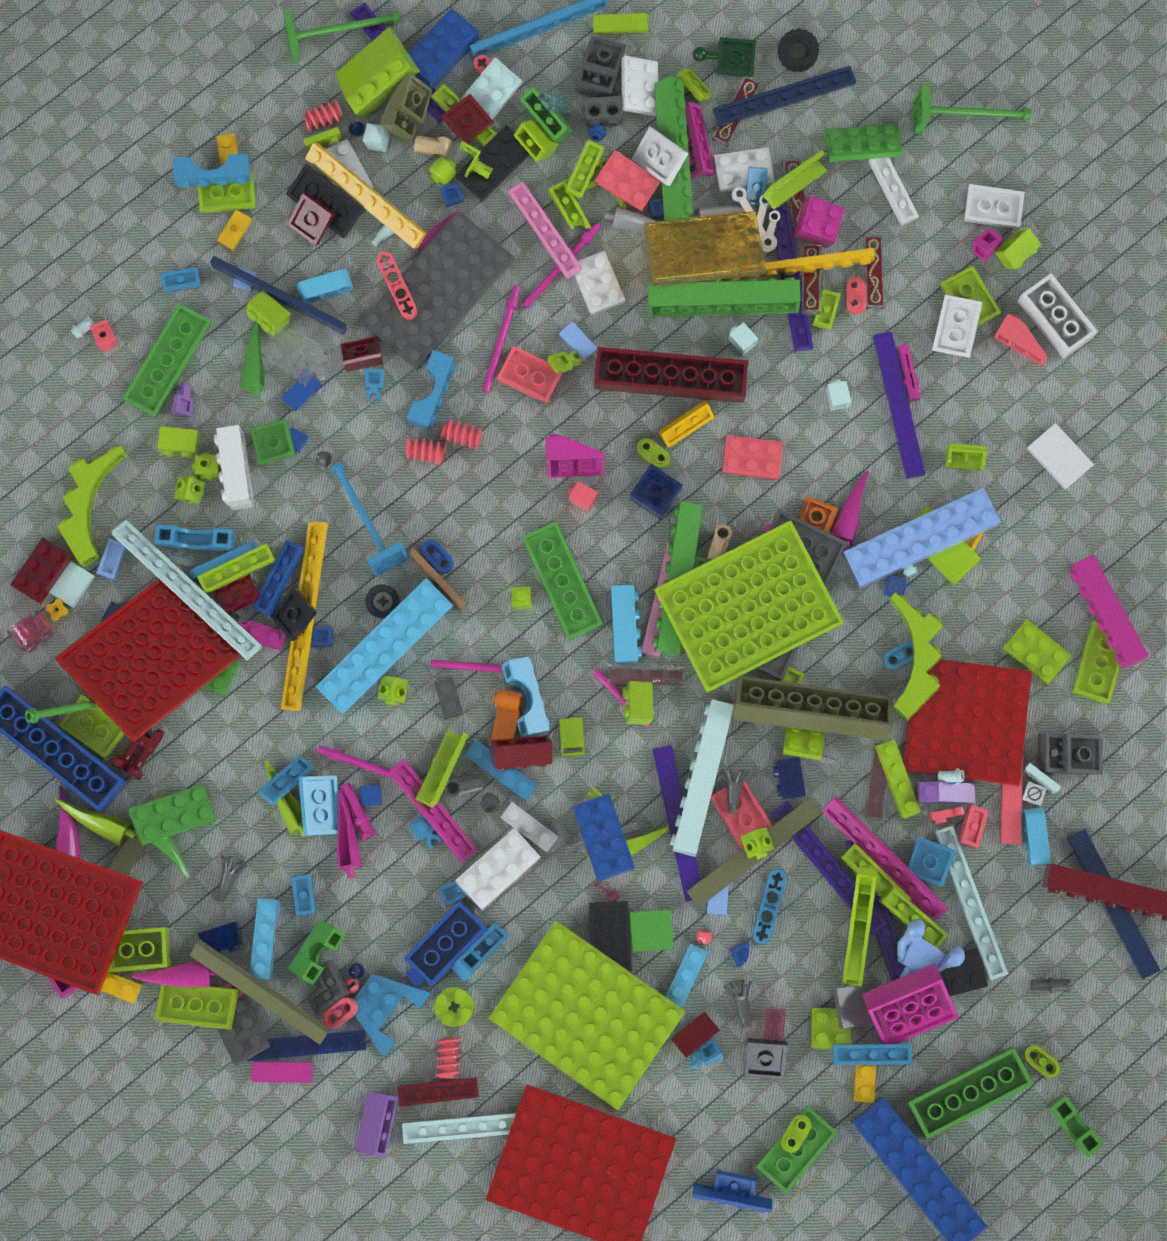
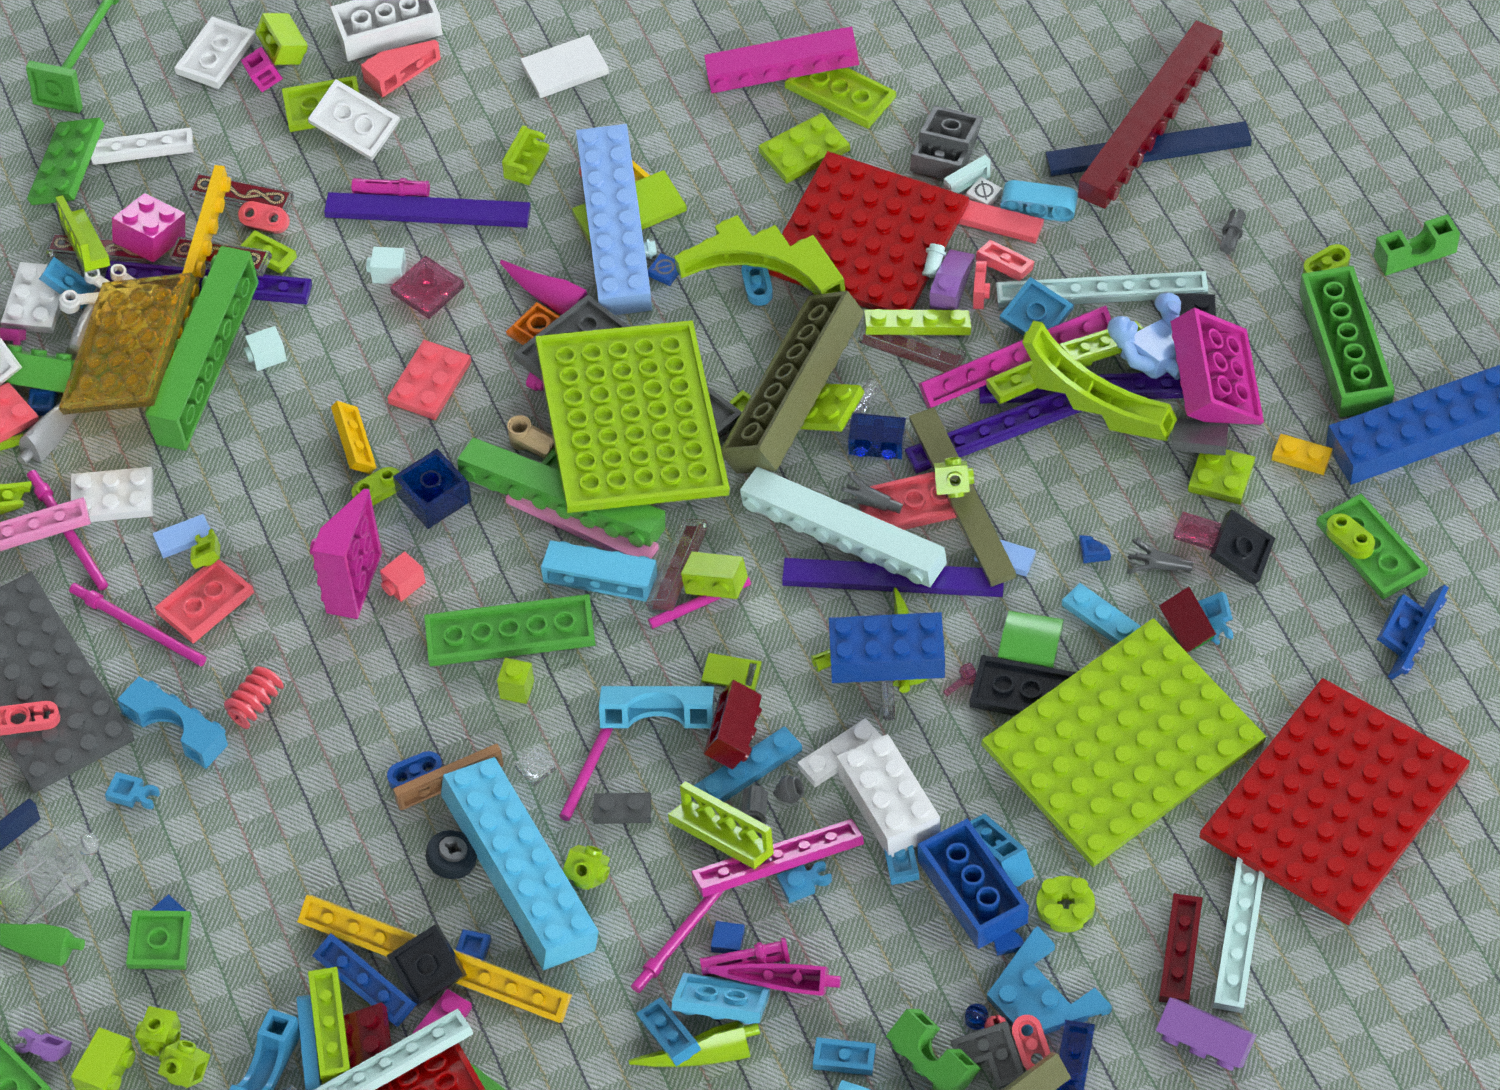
camera: 70 degrees left, 25 degrees down
(235, 467) = (190, 988): white brick -> none
(299, 394) = (102, 893): blue tile -> none
(324, 458) = (211, 882): dark grey hinge -> none
(361, 354) = (80, 796): dark red slope -> none
(386, 558) = (392, 825): dark azure tile -> none
(429, 451) = (255, 747): coral piece -> none
(448, 1057) = (1136, 921): coral piece -> none
(508, 711) = (661, 734): orange door -> none
(670, 374) = (278, 436): dark red brick -> none
(703, 936) = (1055, 582): coral hinge -> none
(772, 907) = (1042, 498): dark azure beam -> none
(829, 428) = (427, 287): none -> clear pink plate
(872, 1054) = (1268, 432): dark azure plate -> none

